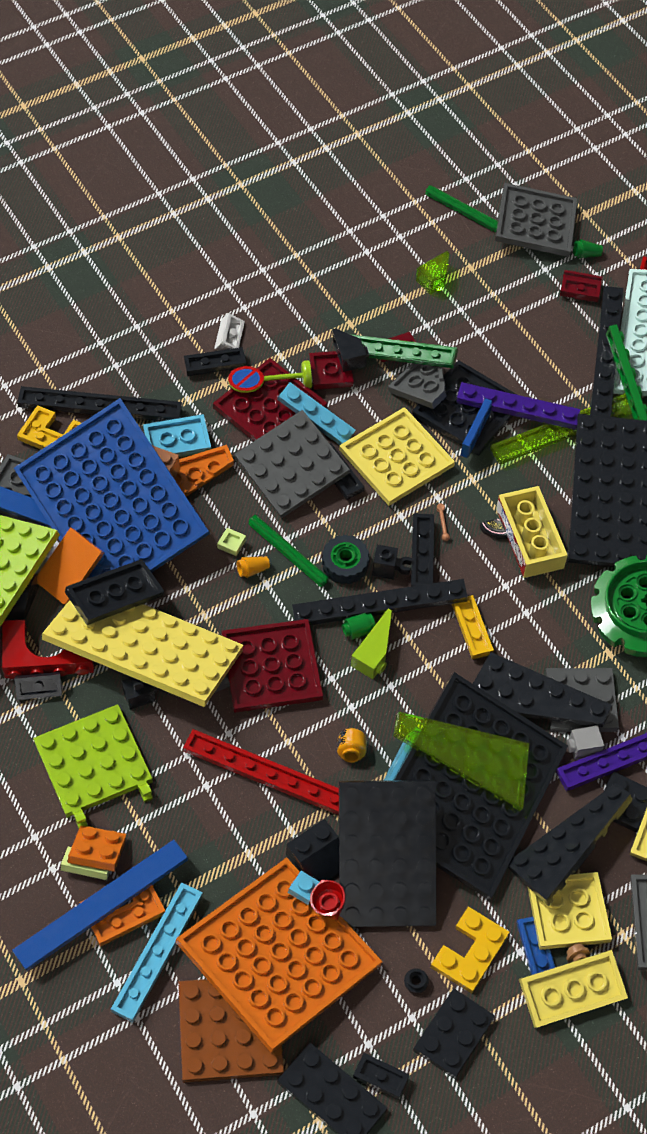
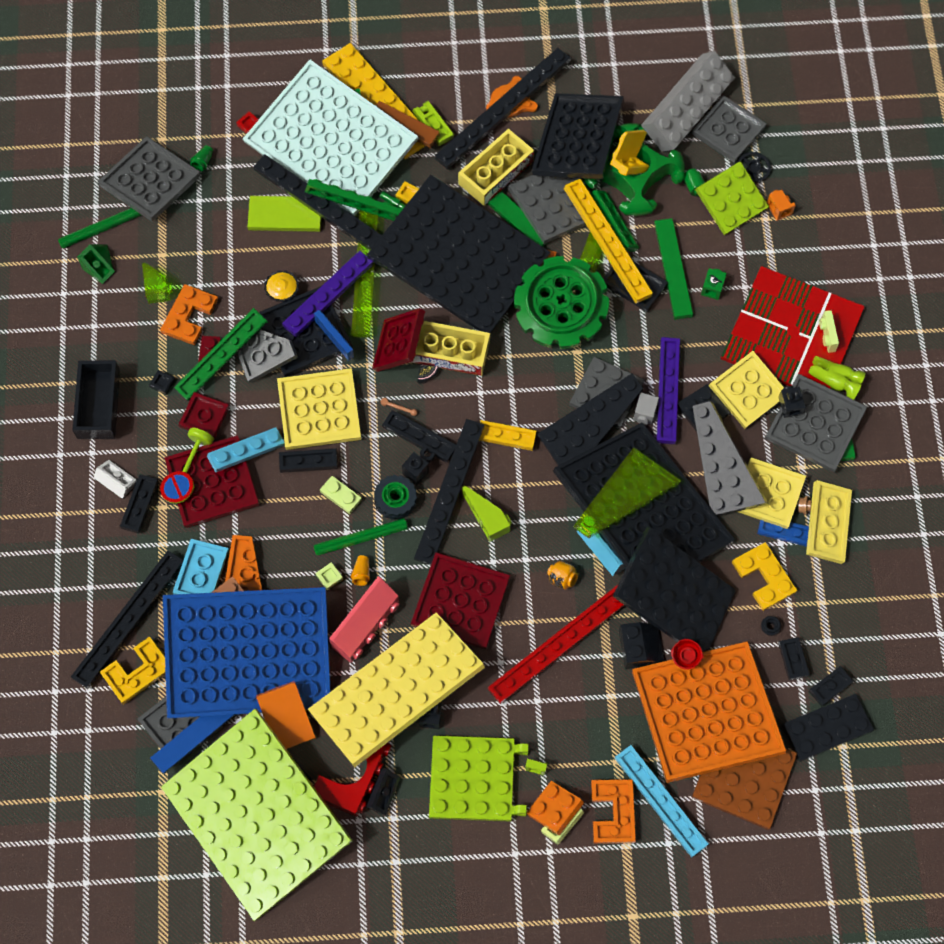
camera: 60 degrees left, 10 degrees up
(99, 905) = (606, 827): blue tile -> none
(114, 591) = (340, 689): black plate -> none
(132, 812) = (535, 767): none -> lime tile
(202, 586) = (364, 620): none -> coral slope
(292, 281) = (96, 399): none -> black piece
(292, 463) = (283, 492): dark grey plate -> none
(302, 887) = (665, 667): medium azure plate -> none
(321, 515) = (340, 495): none -> yellowish green plate
(345, 323) = (162, 382): none -> black tile
(349, 350) = (199, 391): black slope -> none
(358, 626) = (461, 517): green brick -> none
(390, 1021) = (793, 658): none -> black plate
(409, 308) = (176, 321): none -> orange plate
(429, 221) = (96, 261): none -> green slope
(454, 1033) = (820, 620): black plate -> none
(500, 367) = (281, 286): none -> yellow piece
(510, 482) = (398, 340): none -> dark red plate
(575, 335) = (281, 214): none -> lime tile
(581, 286) = (235, 183): dark red plate -> none

